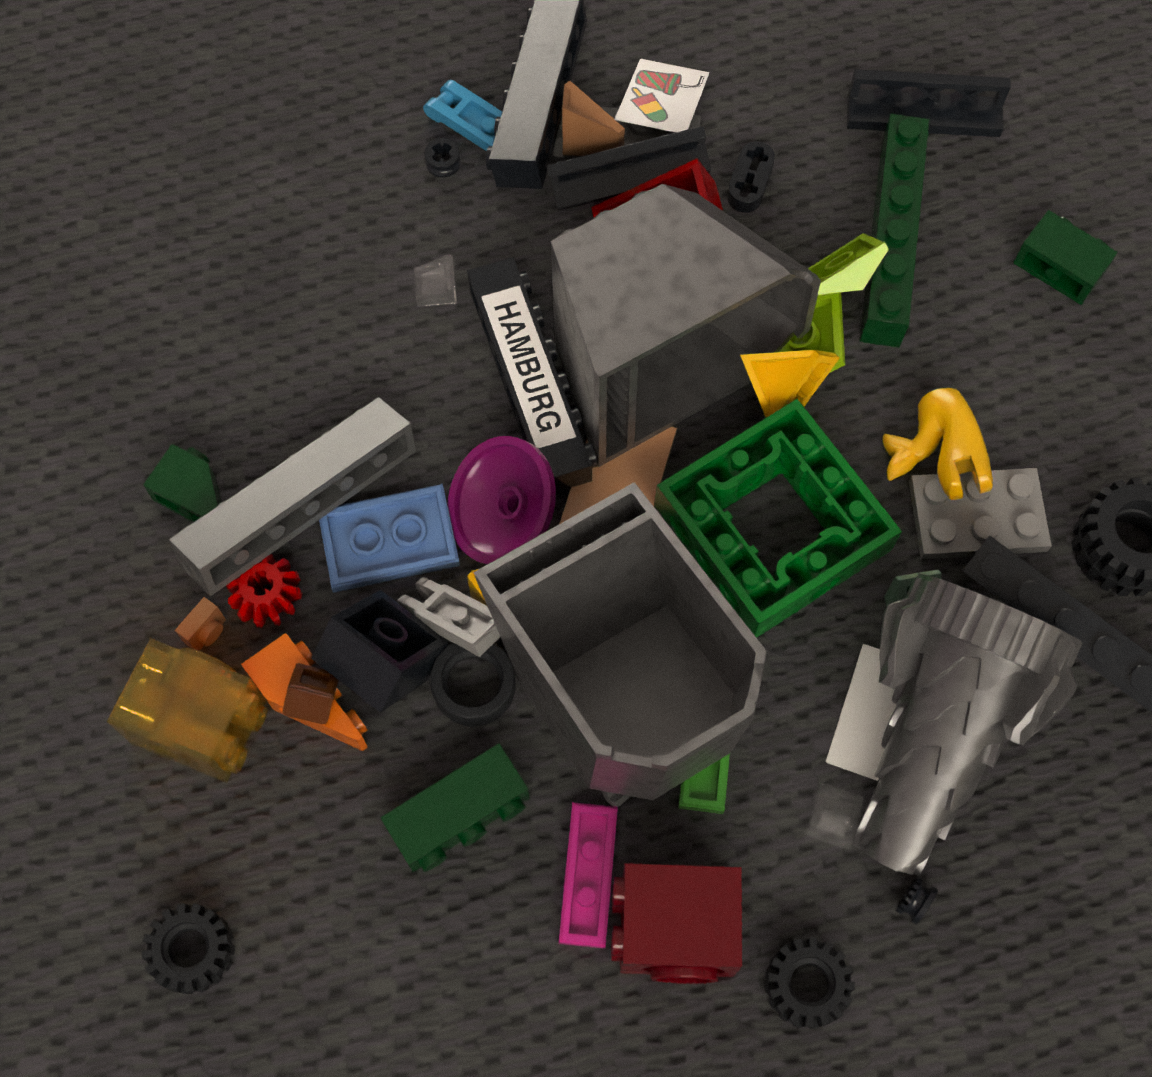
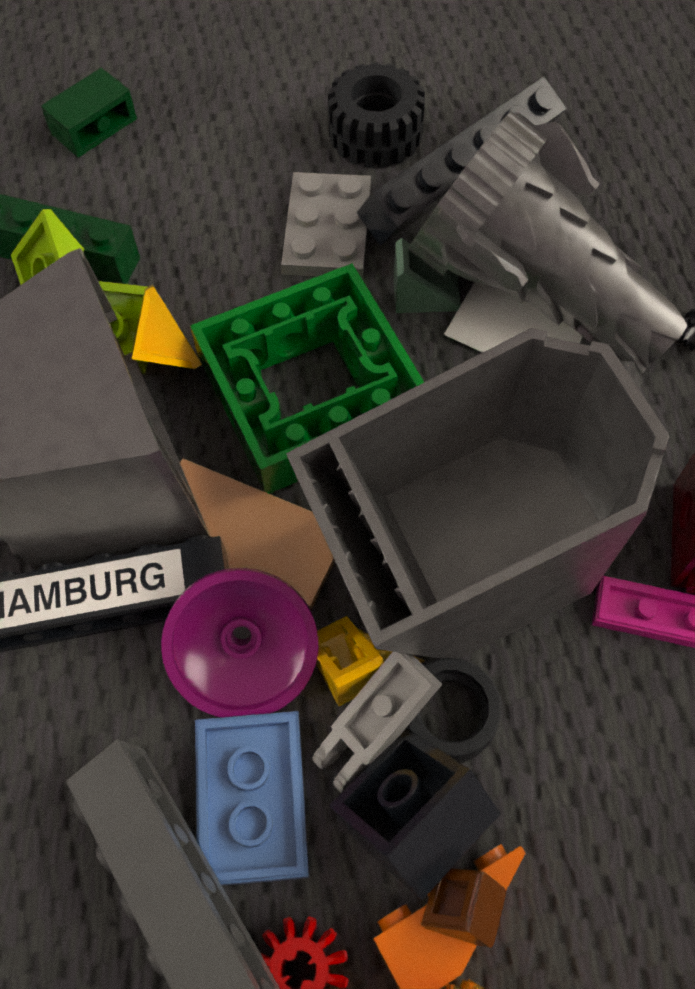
camera: 80 degrees left, 5 degrees down
(457, 809) = (604, 746): dark green brick -> none
(963, 450) = (278, 212): yellow piece -> none

